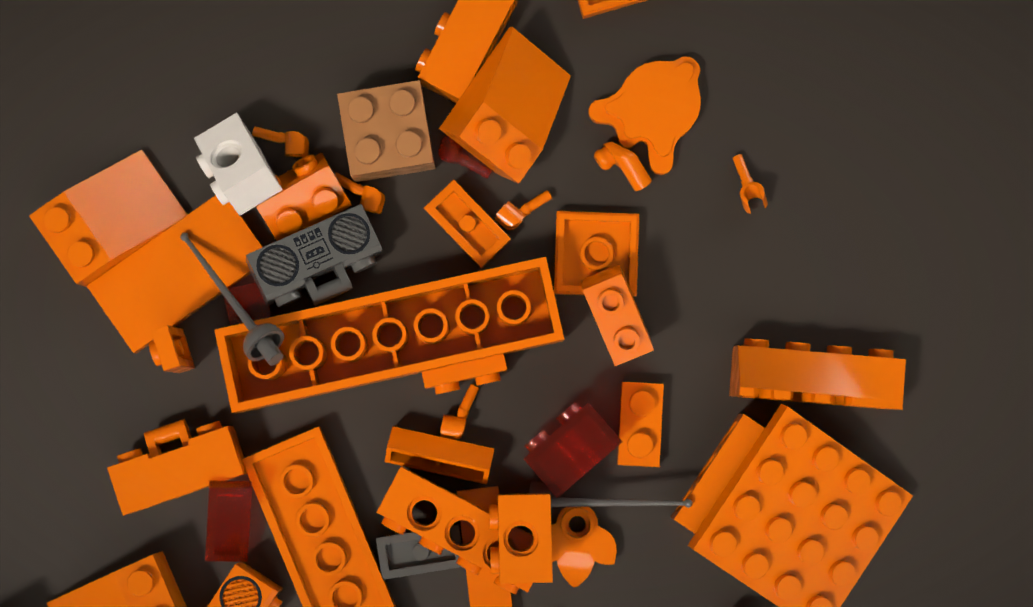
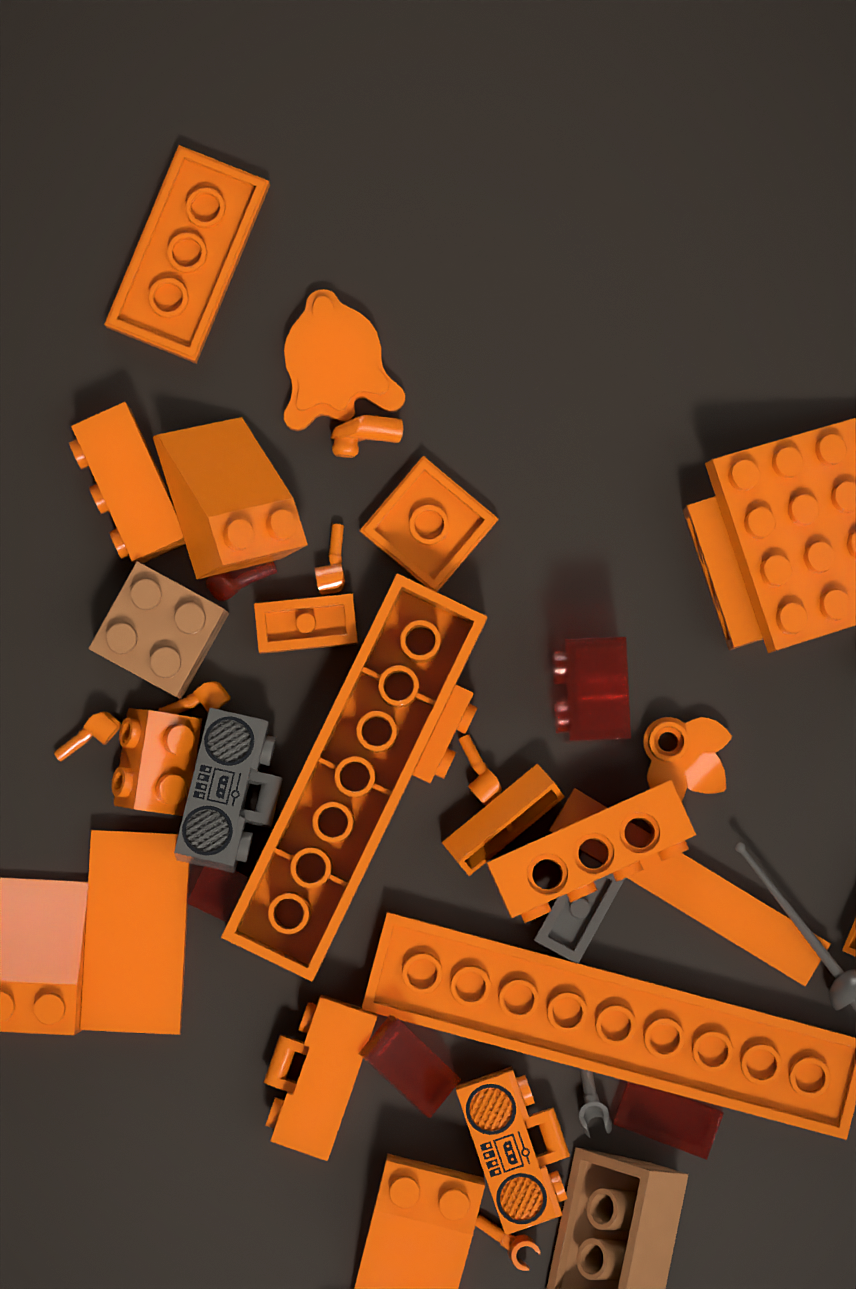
camera: 50 degrees left, 0 degrees up
(171, 349) = (206, 995): orange plate -> none
(236, 164) = (79, 795): white brick -> none
(262, 339) = (267, 899): dark grey sword -> none
(535, 561) = (673, 803): orange brick -> none
(539, 487) = (621, 758): dark grey sword -> none
(617, 315) = (502, 550): orange brick -> none
(640, 424) = (620, 609): orange plate -> none
(749, 188) = (479, 333): orange hand -> none
(817, 377) = (705, 411): orange wedge -> none

